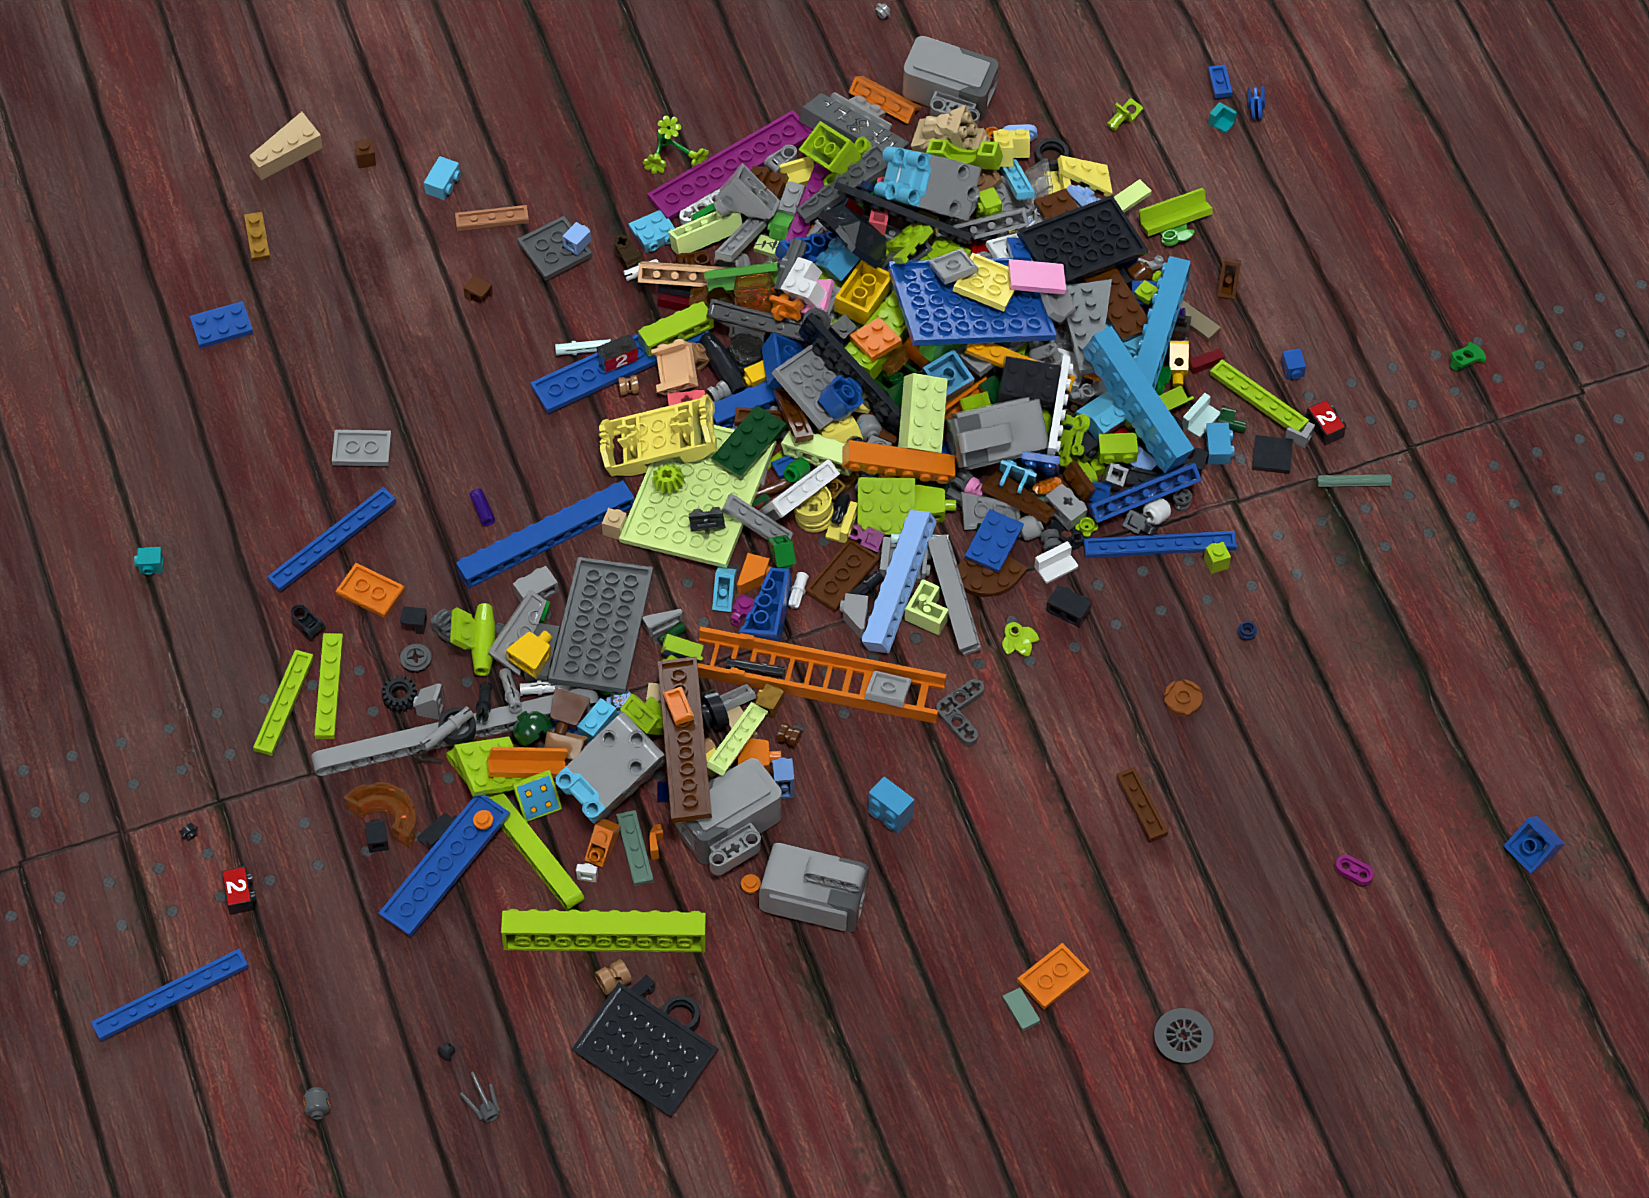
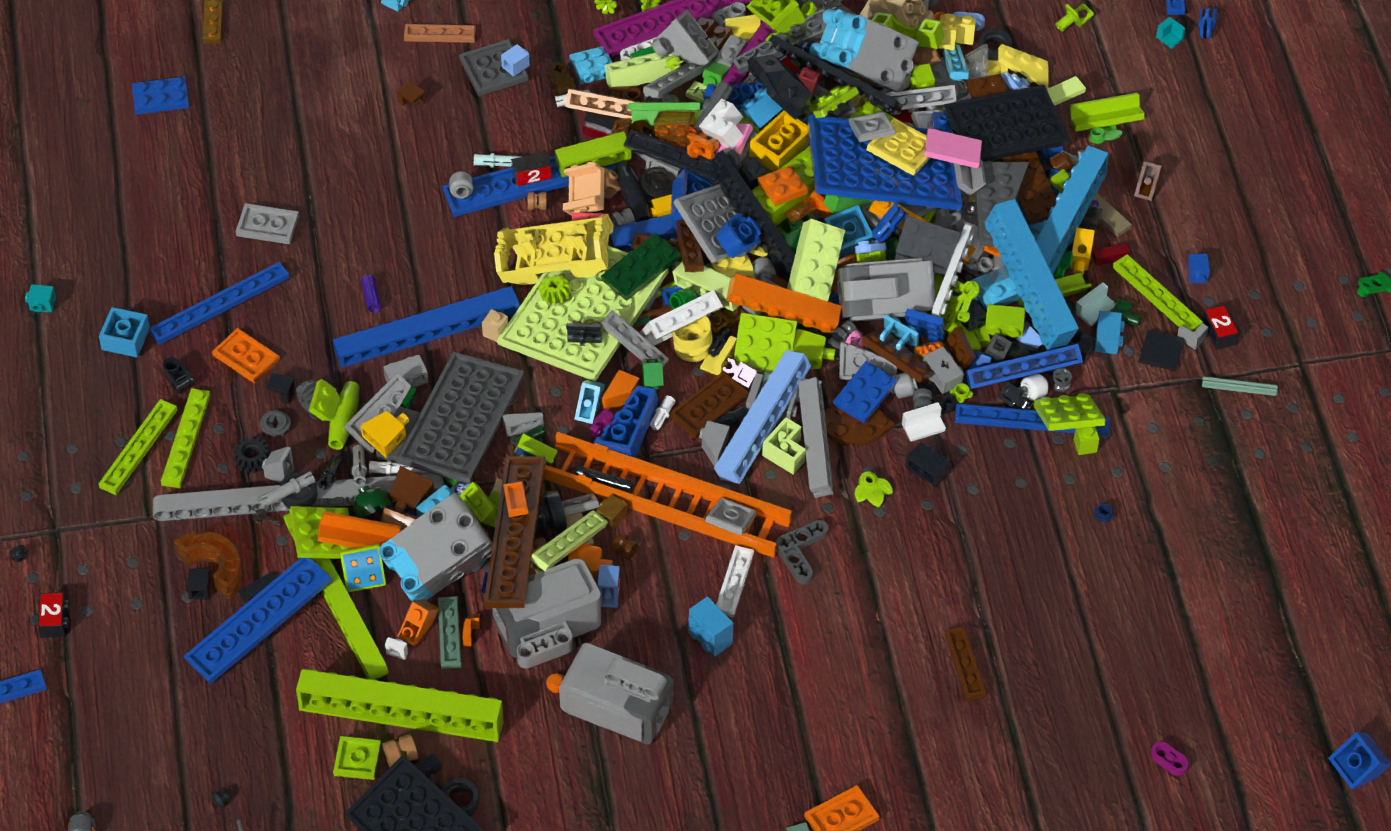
camera: 10 degrees right, 5 degrees down
(243, 584) = (124, 332): none -> dark azure brick
(483, 819) = (303, 581): orange plate -> none
(550, 380) = (461, 185): none -> light grey head
(572, 990) = (357, 758): none -> lime plate
(738, 220) = (673, 63): none -> lime plate
(903, 752) = (734, 580): none -> white tile
(975, 389) = (865, 247): none -> light blue plate
(988, 364) = (889, 222): none -> blue arm
(1183, 697) = (1026, 568): dark orange tile -> none
(1196, 533) = (1069, 412): none -> lime plate

